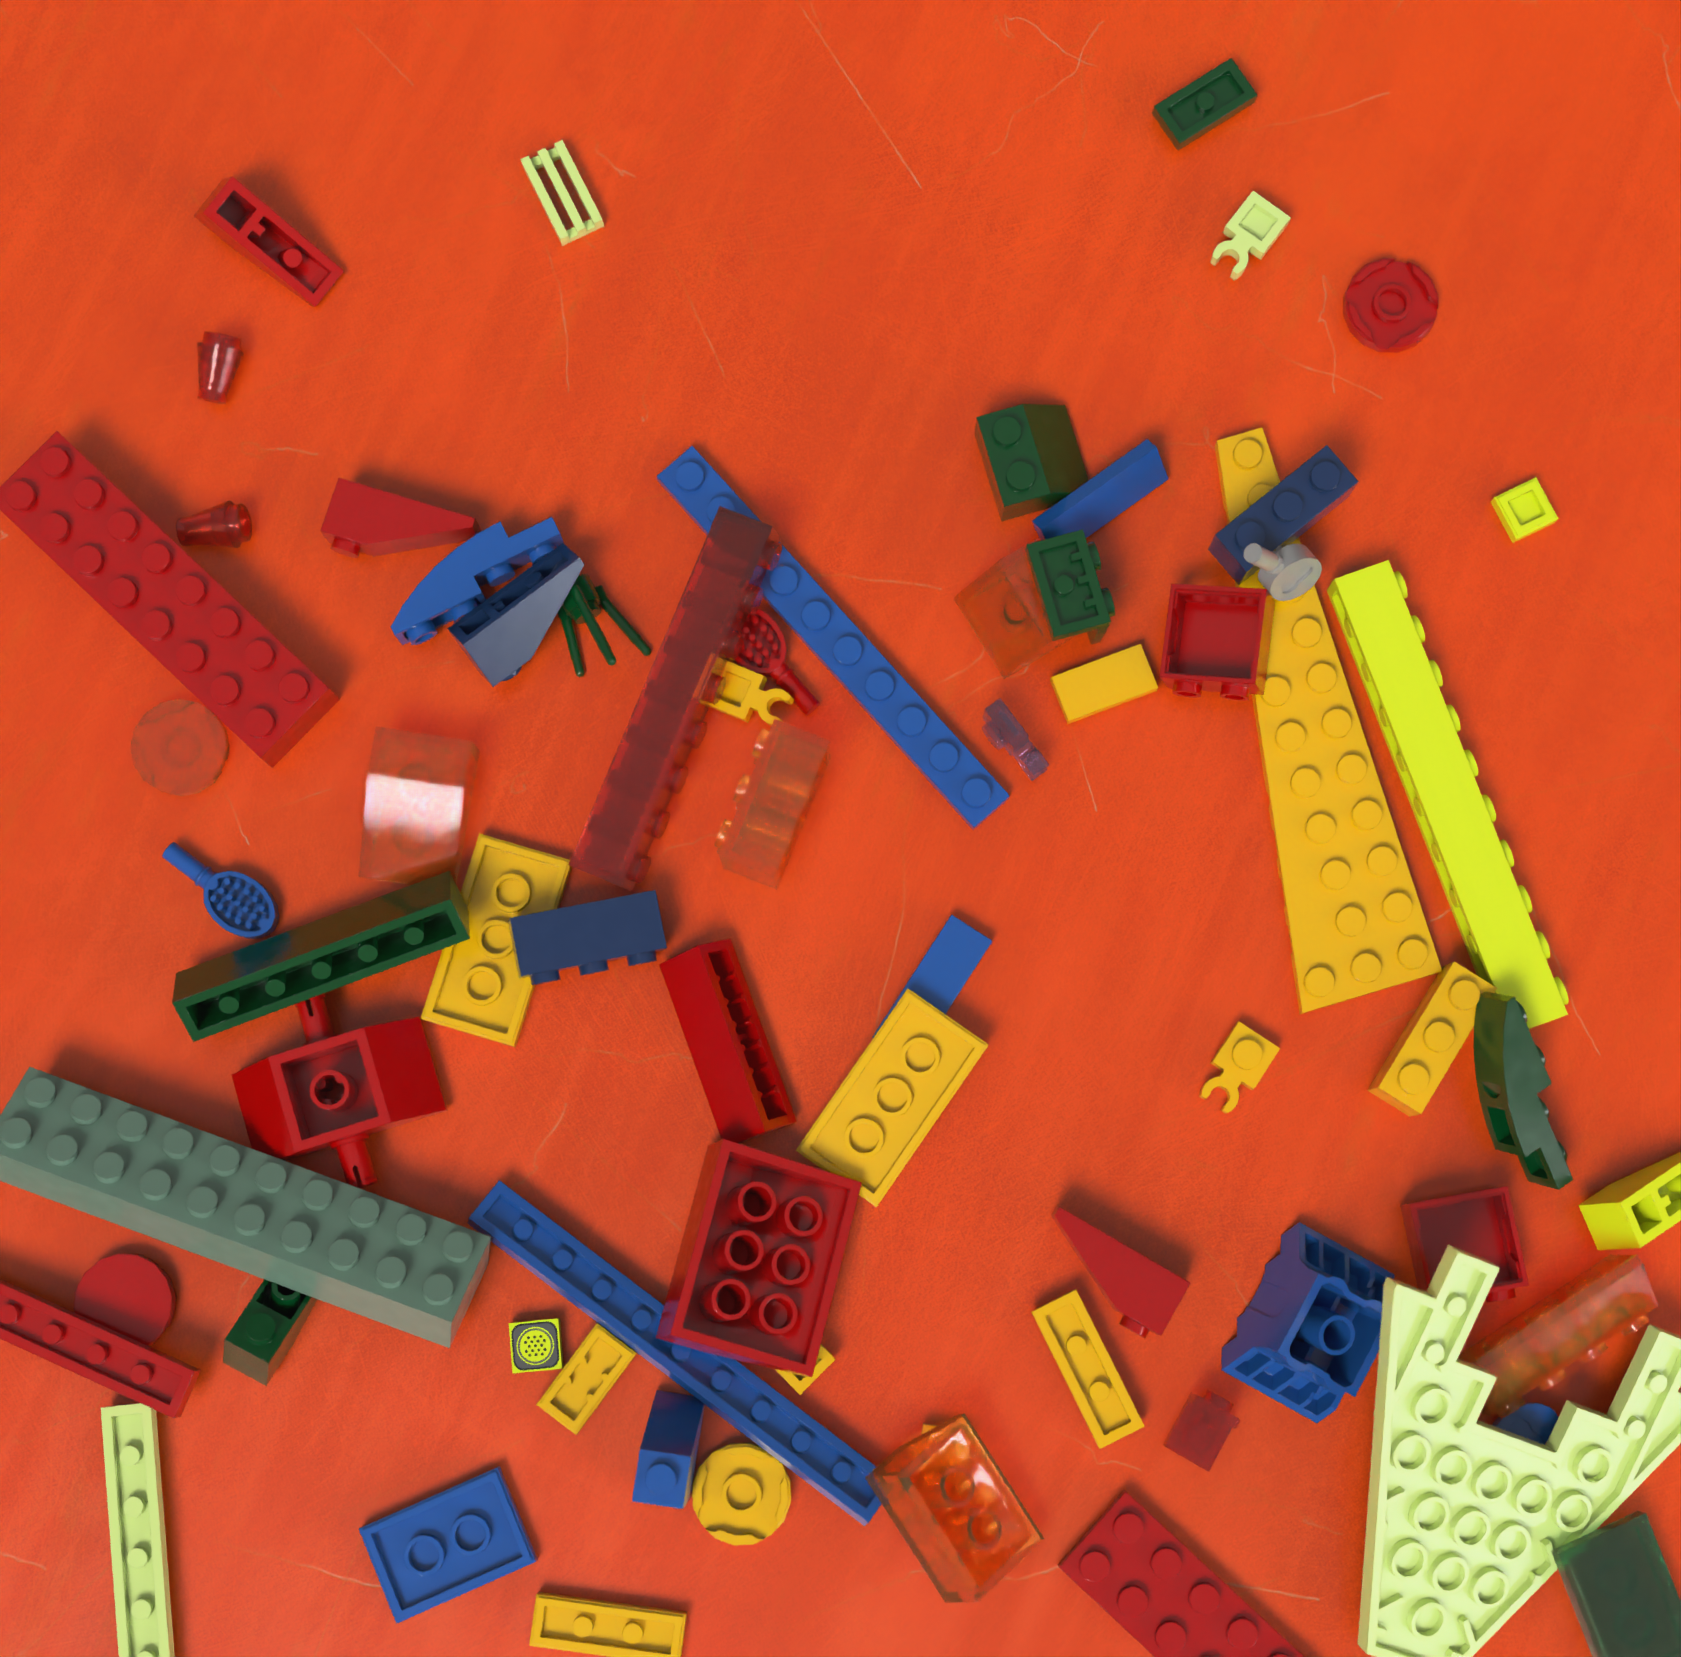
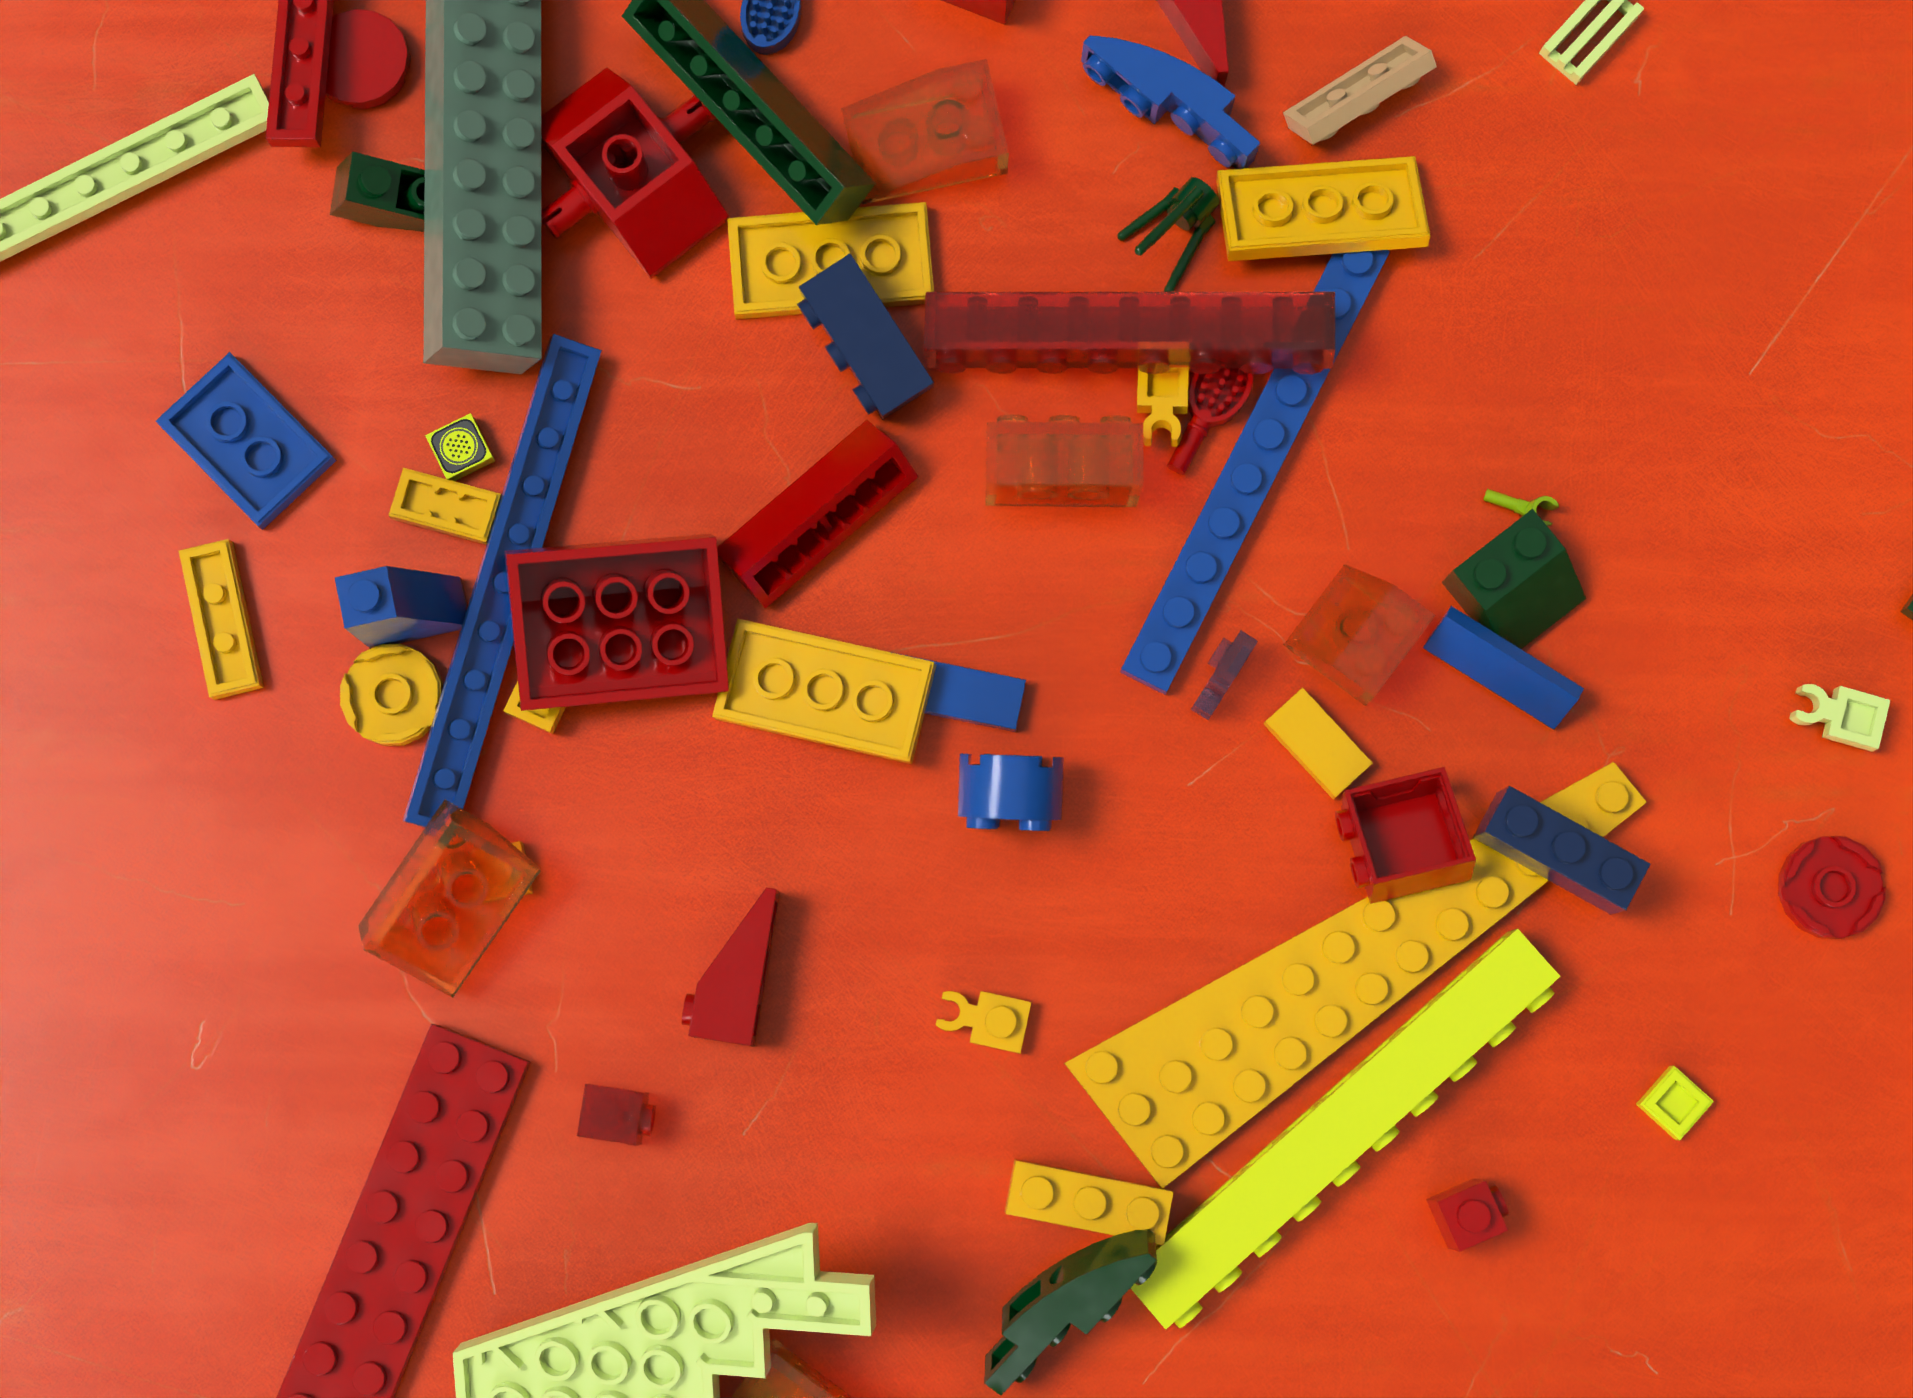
camera: 65 degrees right, 0 degrees up
(514, 620) = (1142, 148): dark blue slope -> none
(535, 412) = (1359, 90): none -> tan plate
(631, 486) = (1322, 208): none -> yellow tile
(966, 423) = (1519, 505): none -> lime hand
(1049, 966) = (1010, 789): none -> blue brick
(1069, 586) = (1398, 657): dark green bracket -> none
(1087, 1369) = (632, 979): yellow plate -> none
(1286, 571) = (1501, 872): light grey piece -> none
(1310, 1325) = (756, 1178): blue slope -> none
(1473, 1222) = (911, 1314): red piece -> none
(1559, 719) = (1469, 1214): none -> red brick

